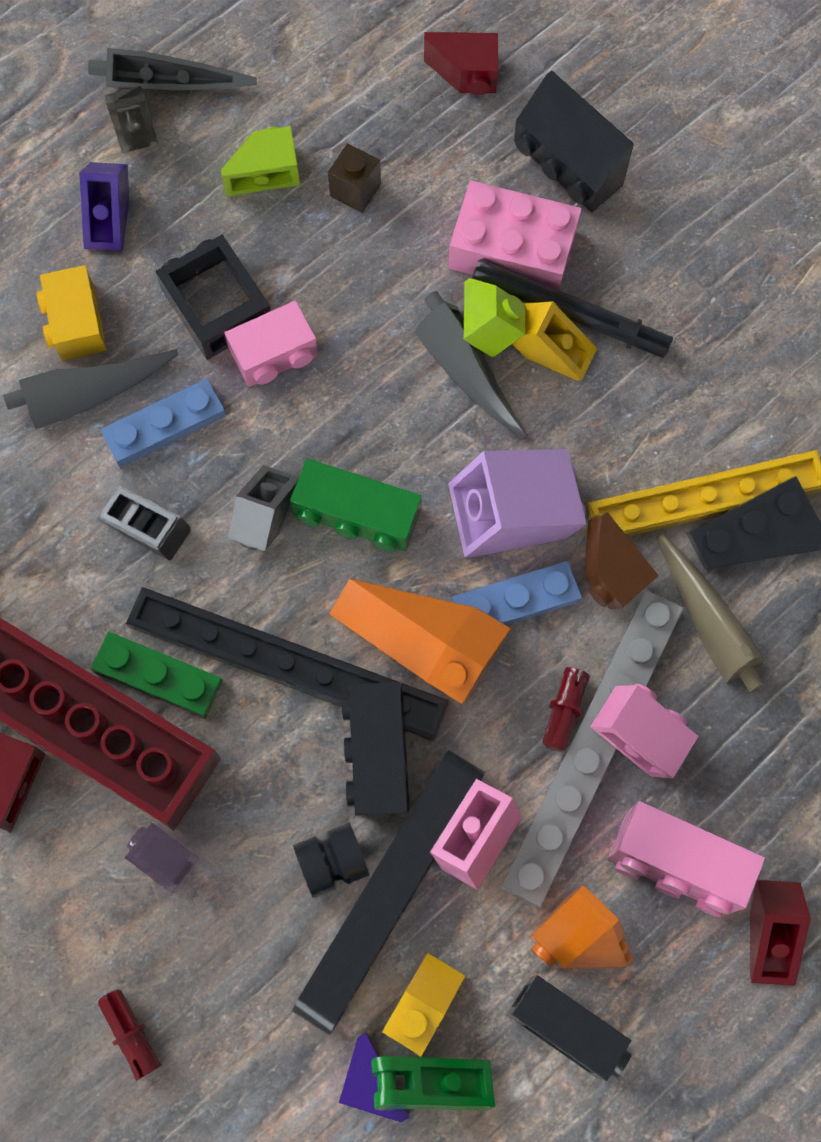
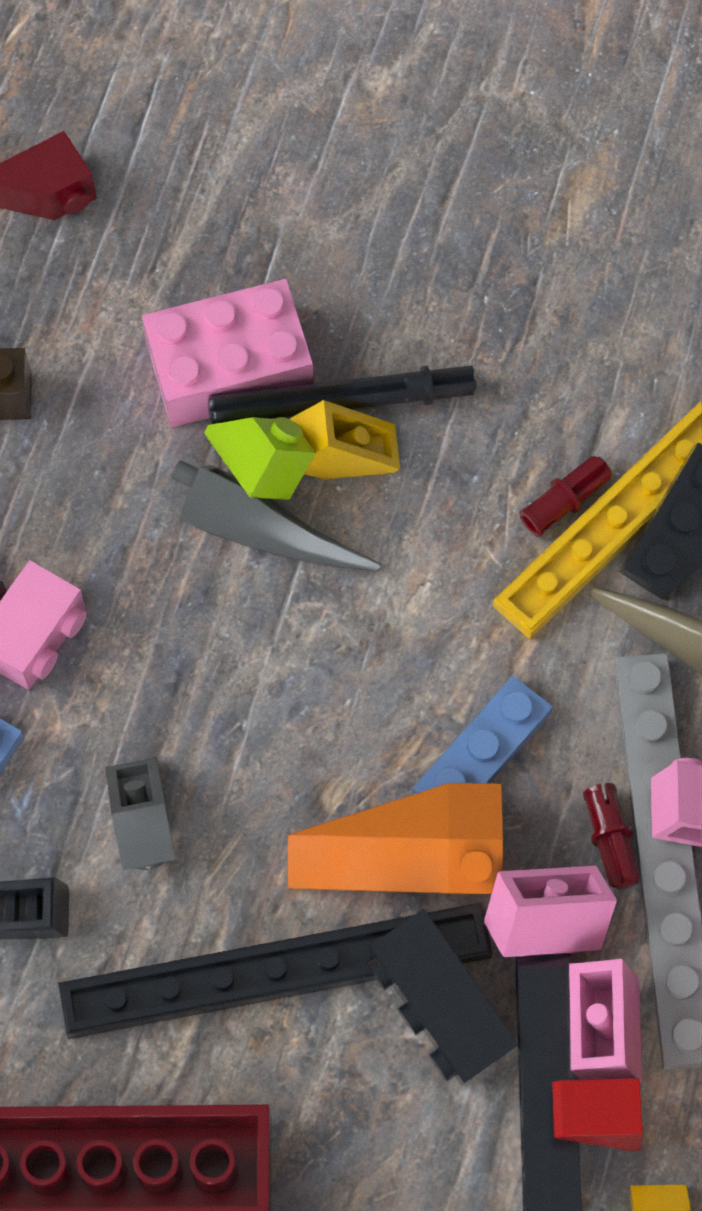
camera: 30 degrees left, 5 degrees down
(156, 674) = (138, 1070): green plate -> none
(331, 860) = (471, 1143): black wheel -> none
(355, 506) = (243, 751): green brick -> none
(431, 891) = (599, 1112): none -> red slope
(487, 734) = (549, 911): none -> bright pink brick
(516, 500) = (416, 643): lavender slope -> none
(573, 143) = (227, 210): black slope -> none
(614, 564) = (565, 648): reddish brown slope -> none
(682, 460) = (565, 495): none -> dark red axle

